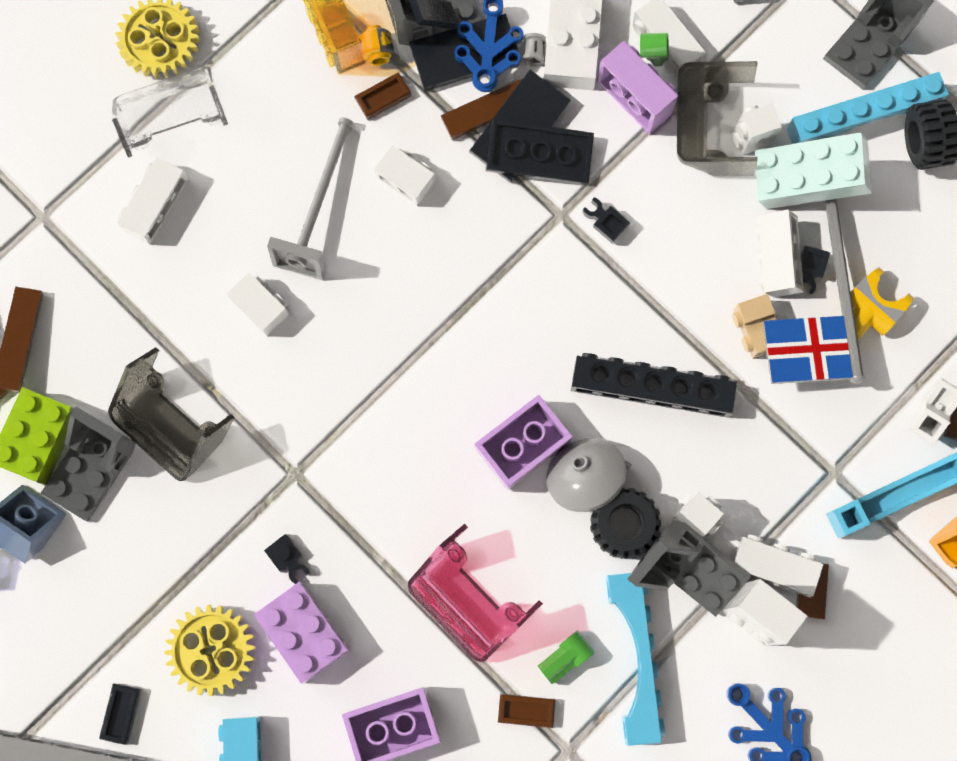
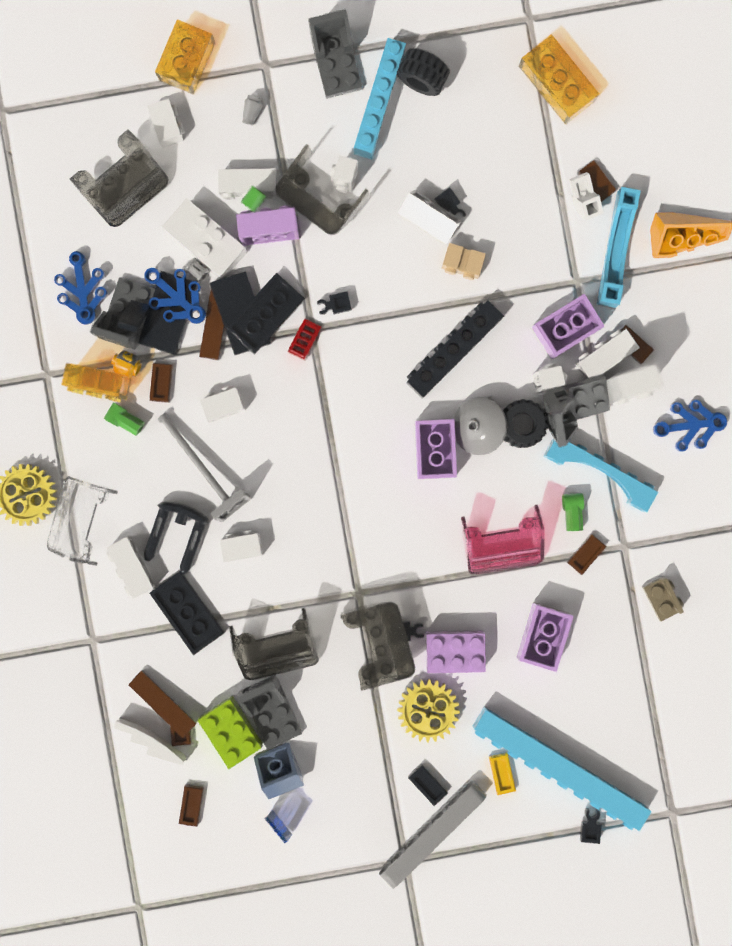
camera: 60 degrees left, 10 degrees up
(142, 297) = (187, 612): none -> black tile
(254, 215) = (183, 512): none -> black piece
(258, 543) = (387, 643): none -> clear smoke windscreen
(313, 77) = (121, 418): none -> bright green piece
(541, 205) = (296, 353): none -> red slope
(775, 496) = (568, 326): none -> lavender brick
(813, 171) = (396, 160): light aqua brick -> none
(818, 345) = (504, 231): flag -> none
(872, 309) = (499, 188): yellow connector -> none

